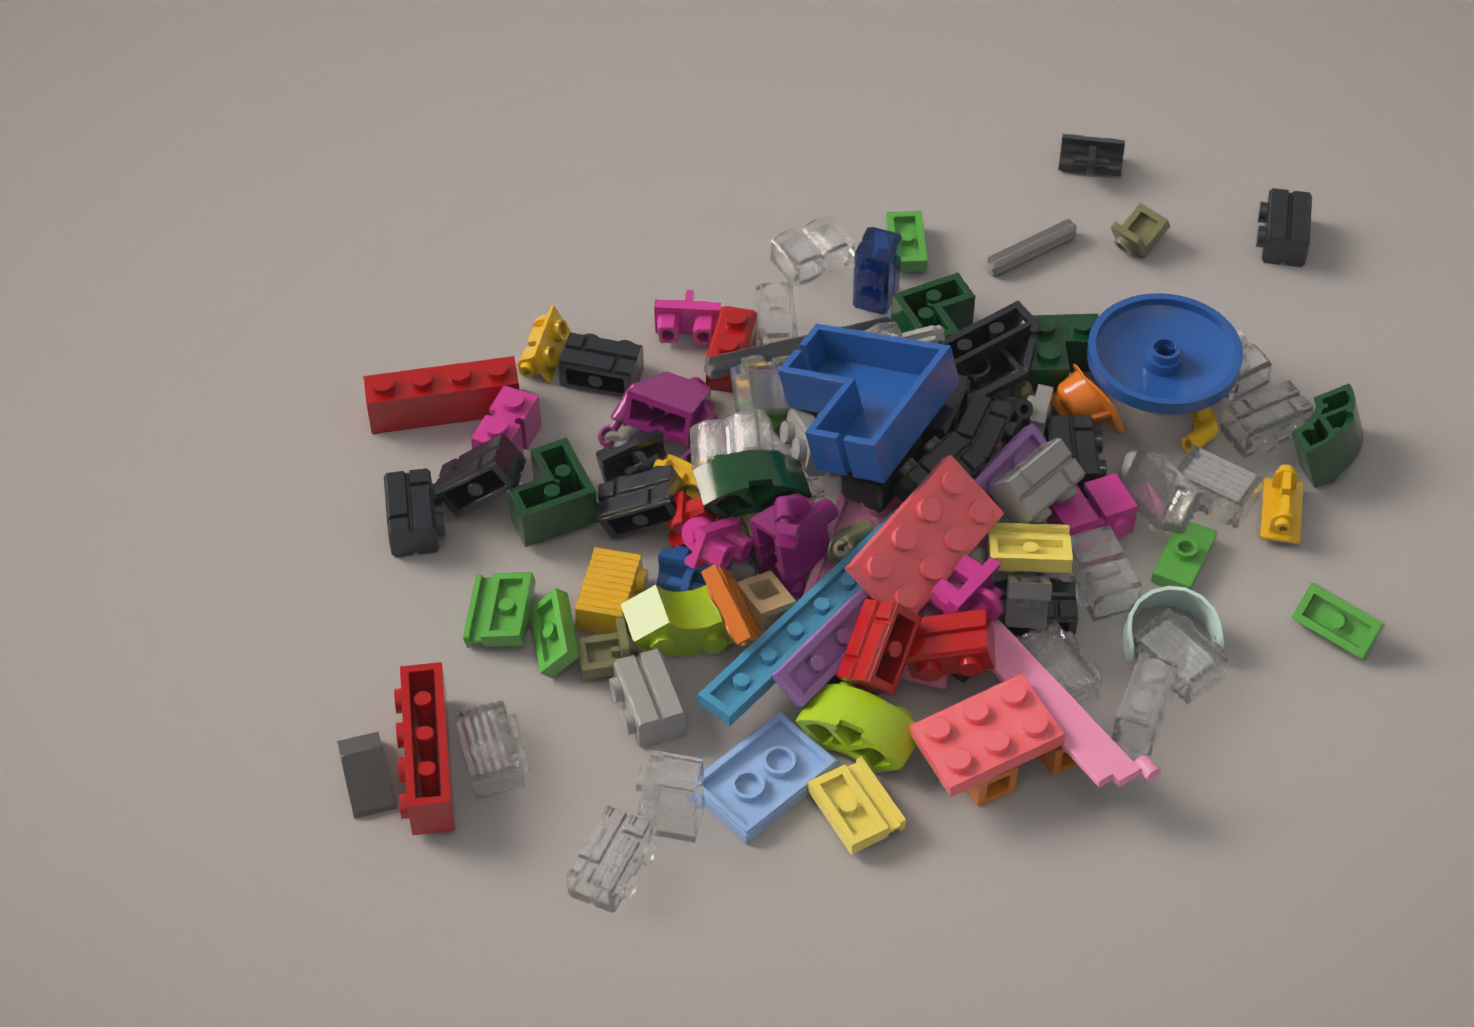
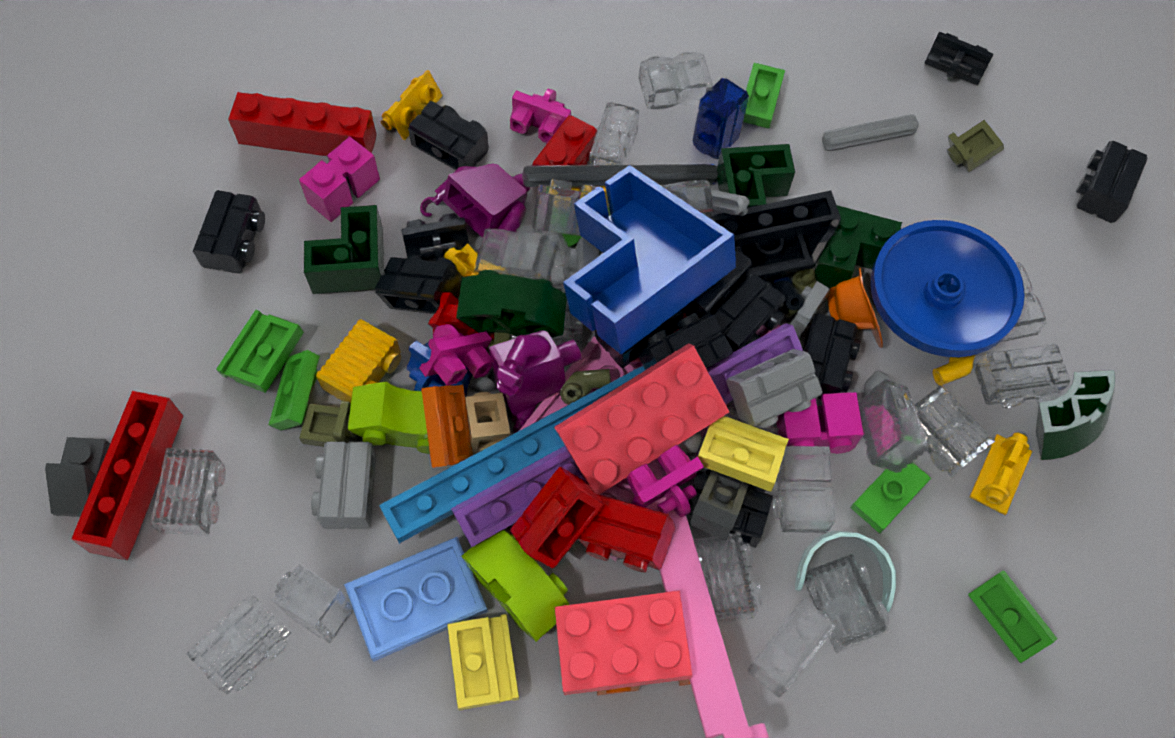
camera: 15 degrees right, 15 degrees up
(480, 475) = (292, 217): black brick -> none

